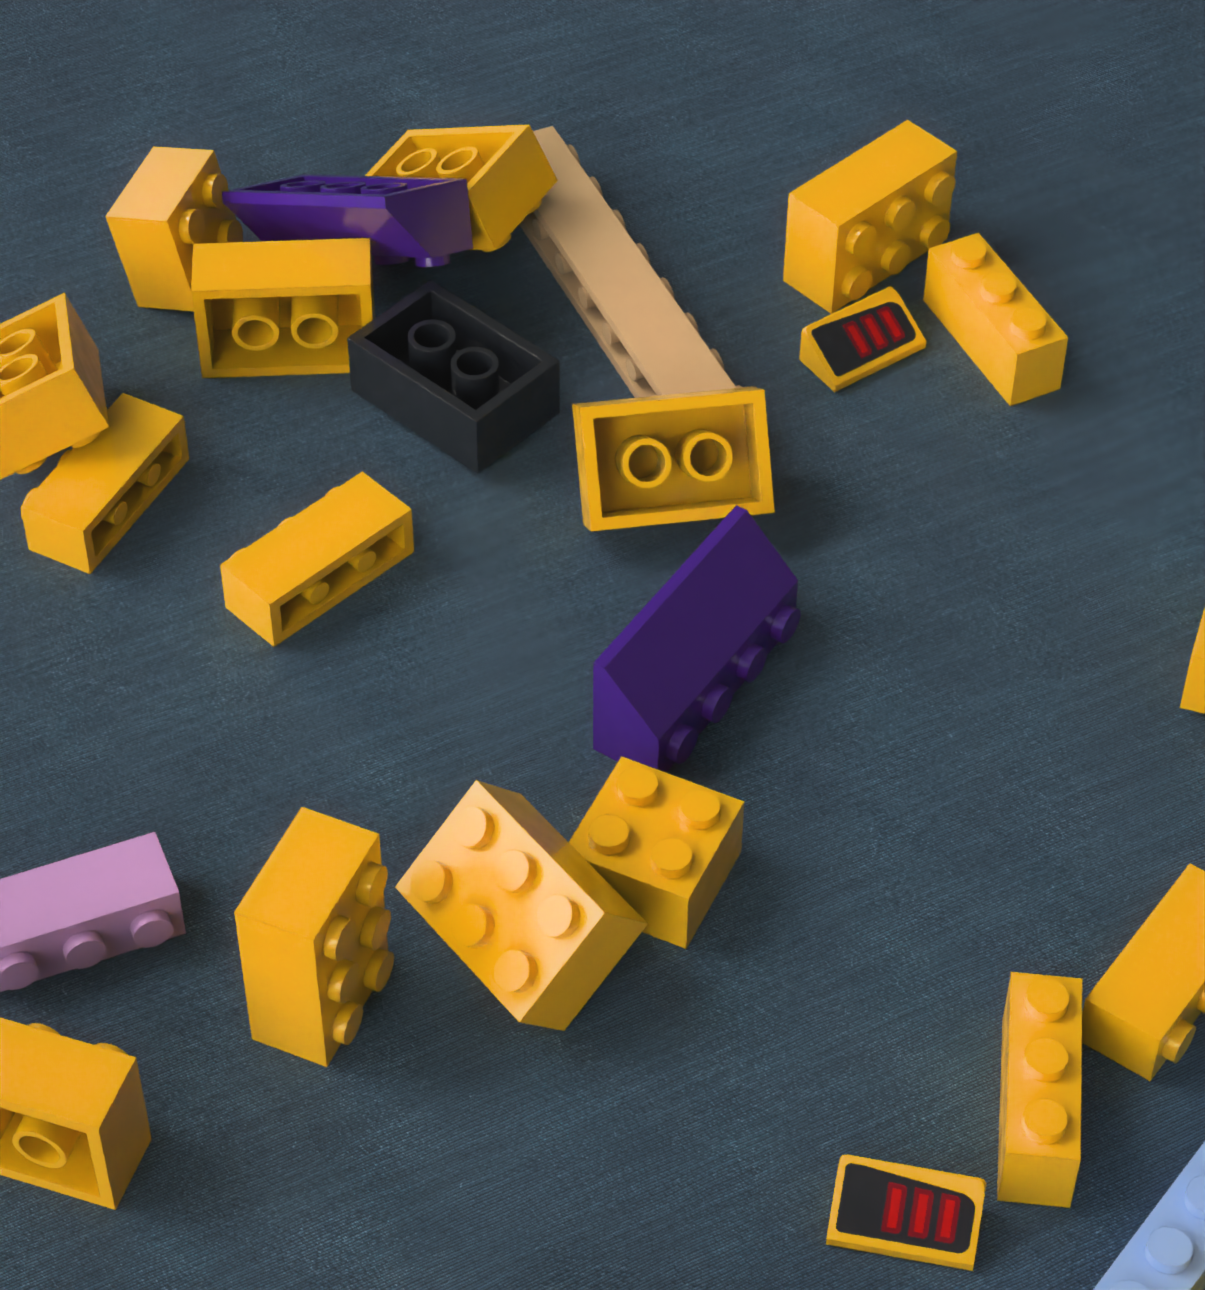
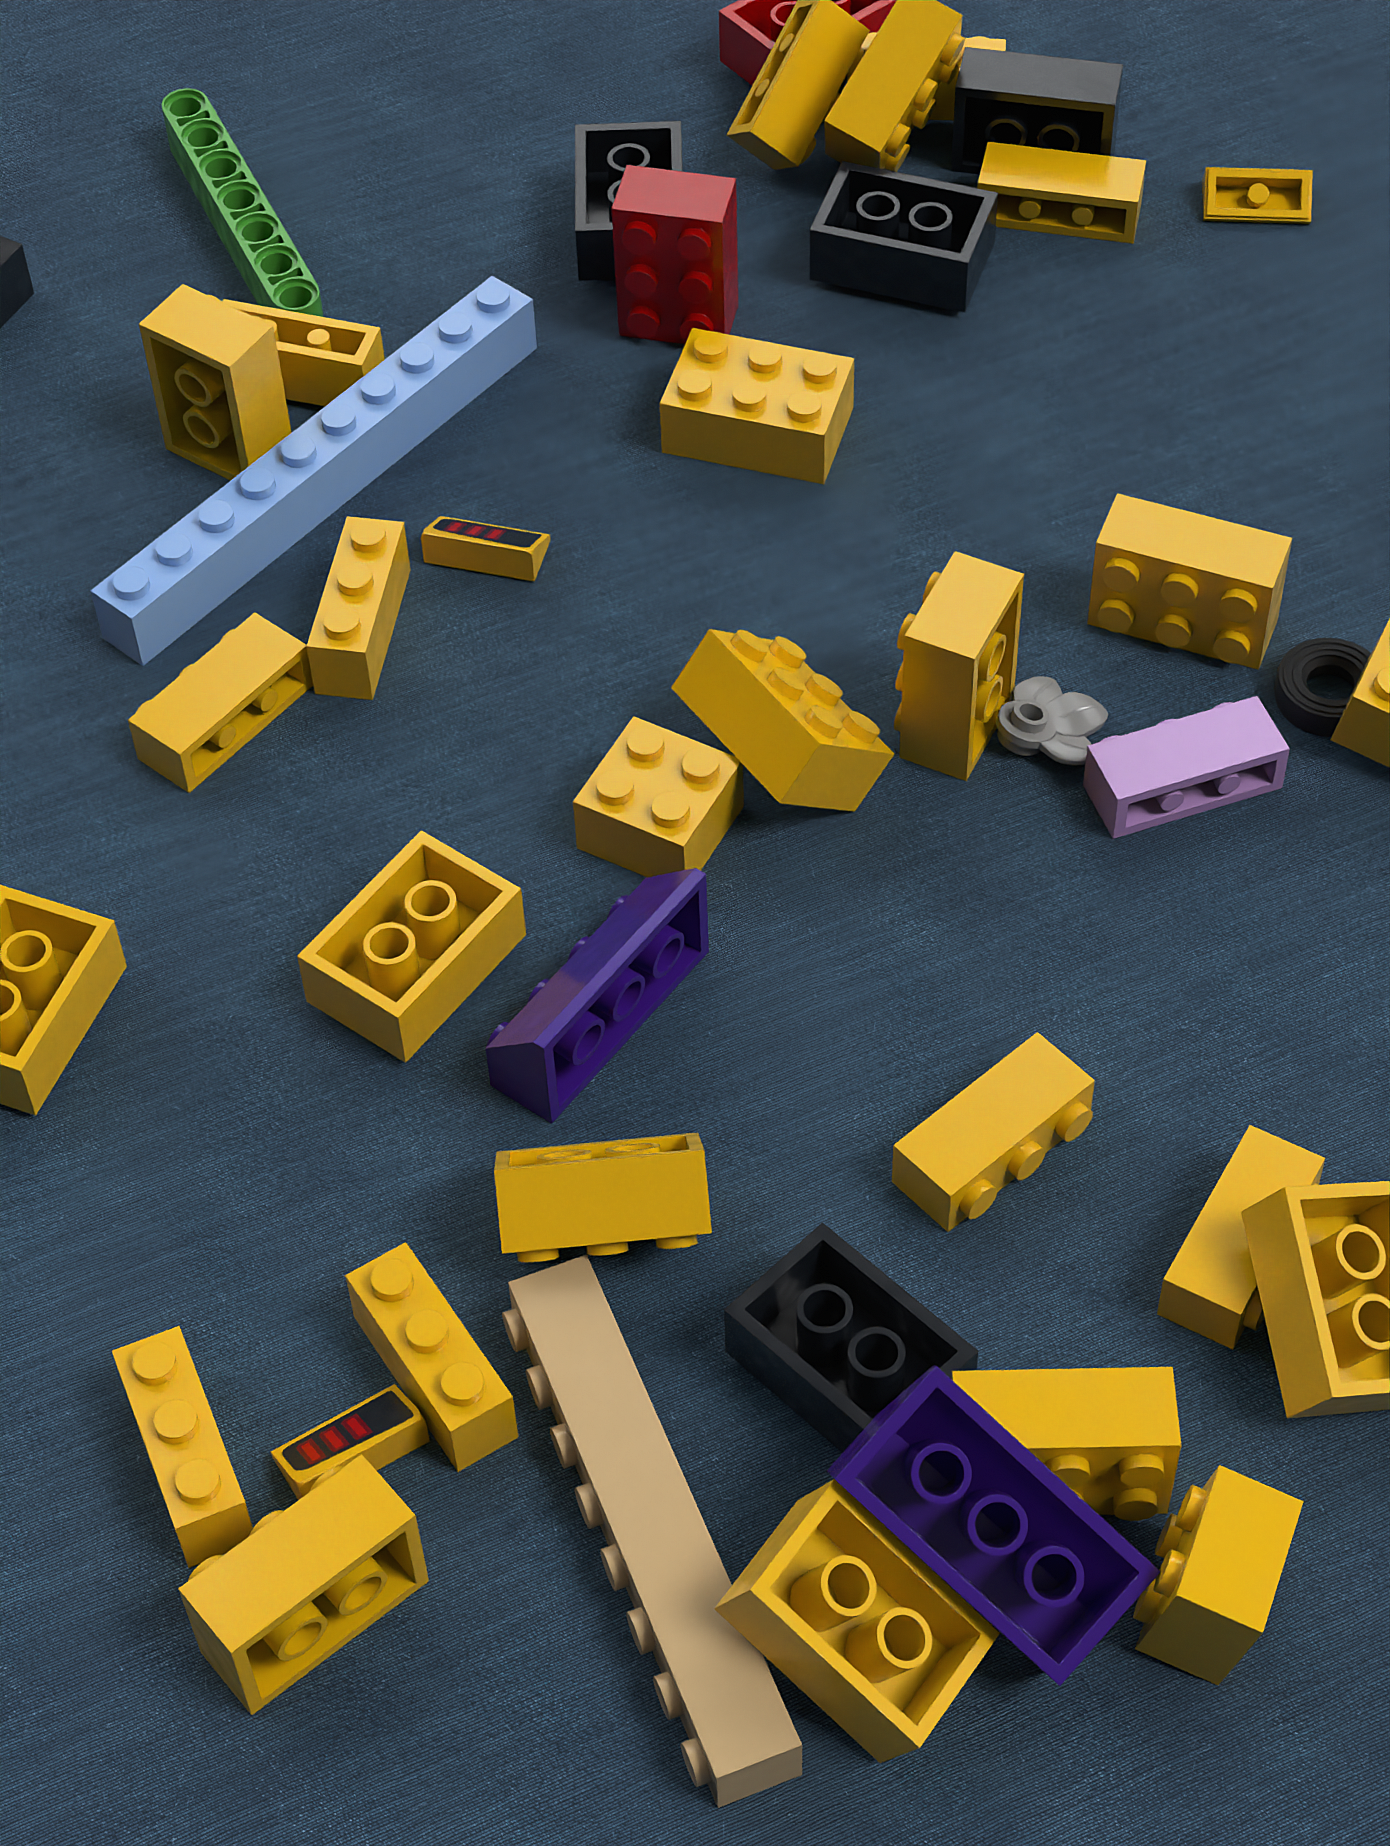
camera: 175 degrees left, 5 degrees up
(203, 989) = (1049, 721): none -> light grey plate
(806, 379) = (432, 1356): none -> yellow brick
(887, 687) = (412, 945): none -> yellow brick

